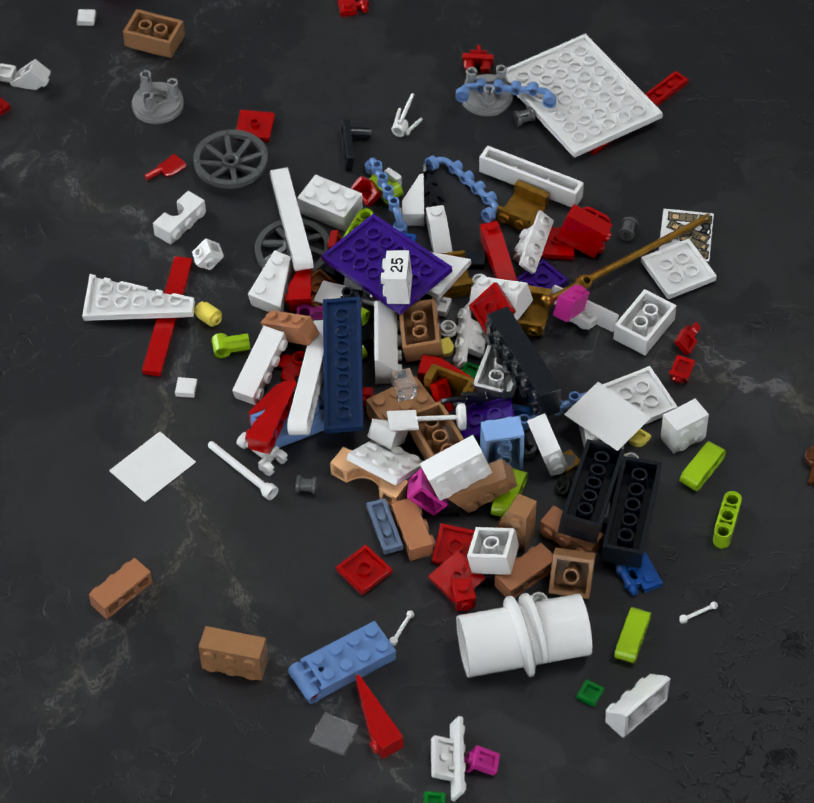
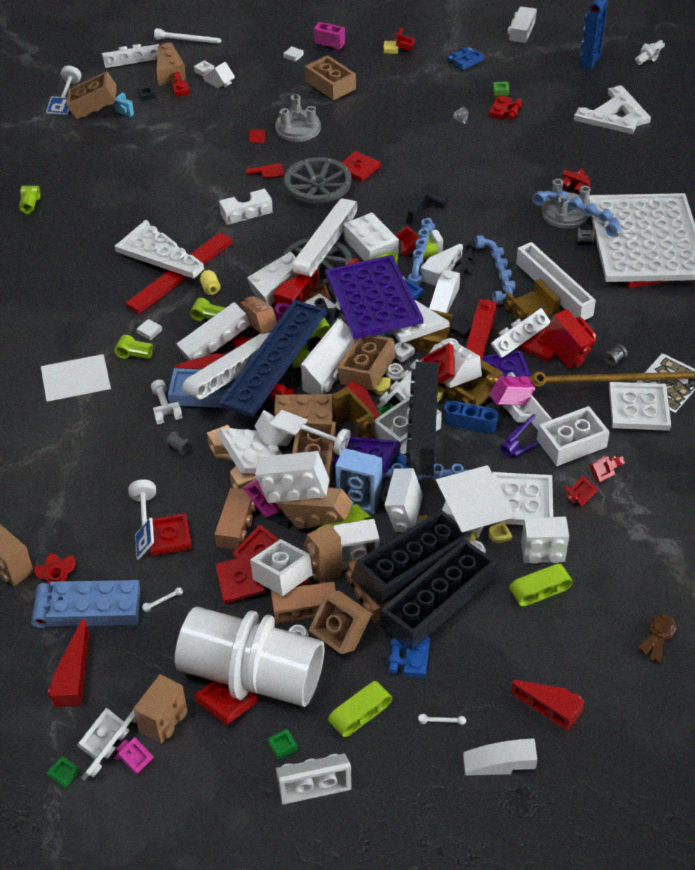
camera: 30 degrees right, 5 degrees down
(124, 131) = (257, 135): none -> red slope
(183, 414) = (129, 347): none -> lime piece
(207, 254) = (243, 239): white brick -> none
(268, 490) = (144, 434): white piece -> none
(270, 423) = (169, 382): red slope -> none
(285, 647) = (54, 568): none -> red plate
(315, 25) = (461, 115): none -> clear tile
(333, 734) = (32, 663): clear piece -> none
(348, 581) = (143, 491): none -> white piece
(384, 526) = (213, 506): sand blue plate -> none
(397, 277) = (364, 304): white brick -> none
(400, 125) = (475, 205): white plant -> none
(404, 384) = (311, 394): clear brick -> none
(440, 390) = (343, 416): red plate -> none
(463, 594) = (233, 594): red bracket -> none
(470, 397) = (360, 429): black piece -> none
(482, 713) = (160, 709): none -> medium nougat brick
(519, 684) = (220, 703): none -> red plate
(544, 492) = (357, 540): none -> white brick
(551, 341) = (470, 417): none -> blue beam
(597, 355) = (511, 445): none -> dark purple plant
(729, 510) = (538, 643): lime beam -> none
(764, 618) = (501, 757): none -> white slope
(775, 557) = (550, 701): none -> red slope

